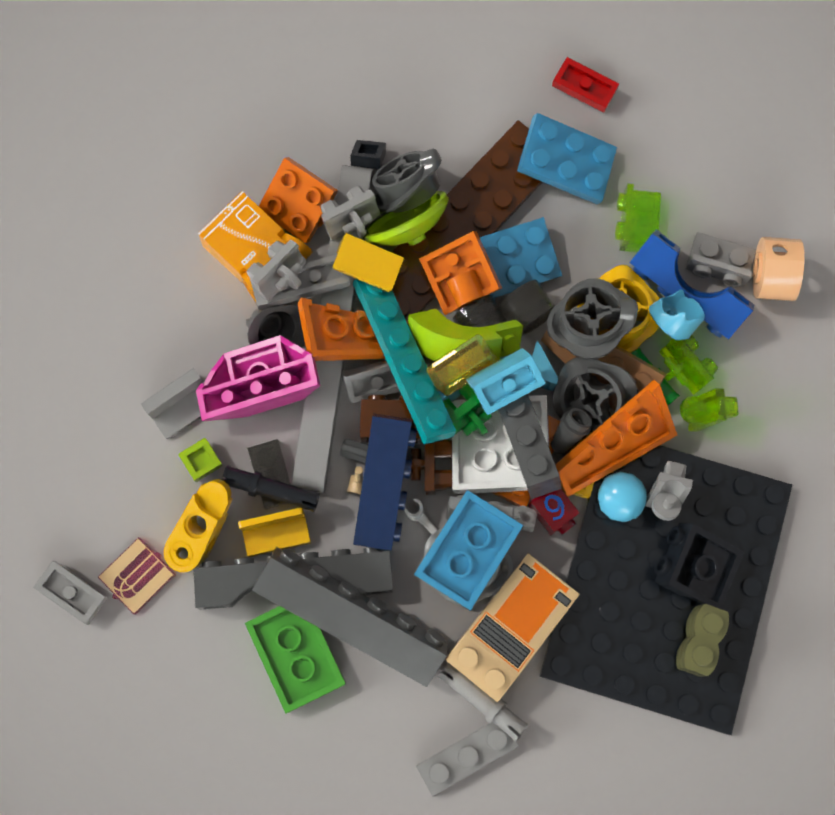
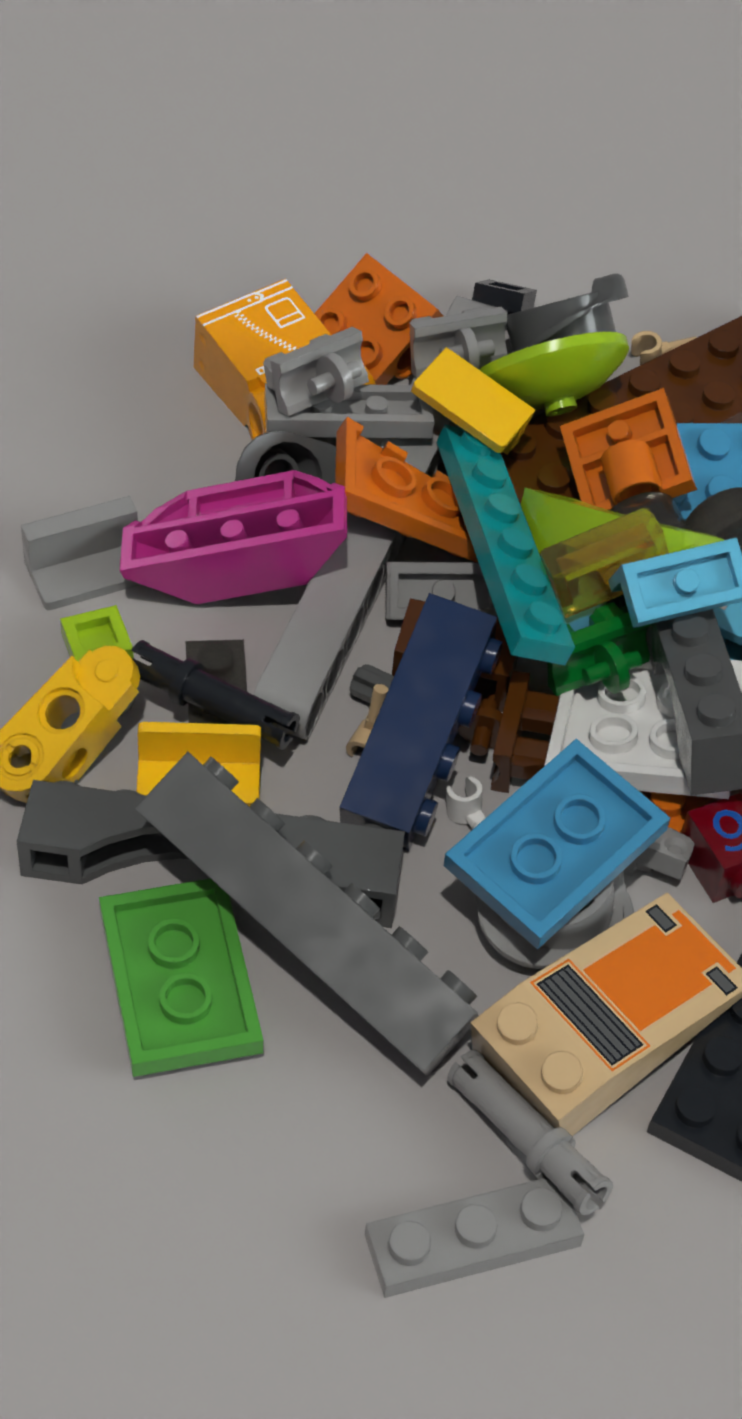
camera: 10 degrees right, 25 degrees down
(465, 166) = (650, 345): none -> tan hand

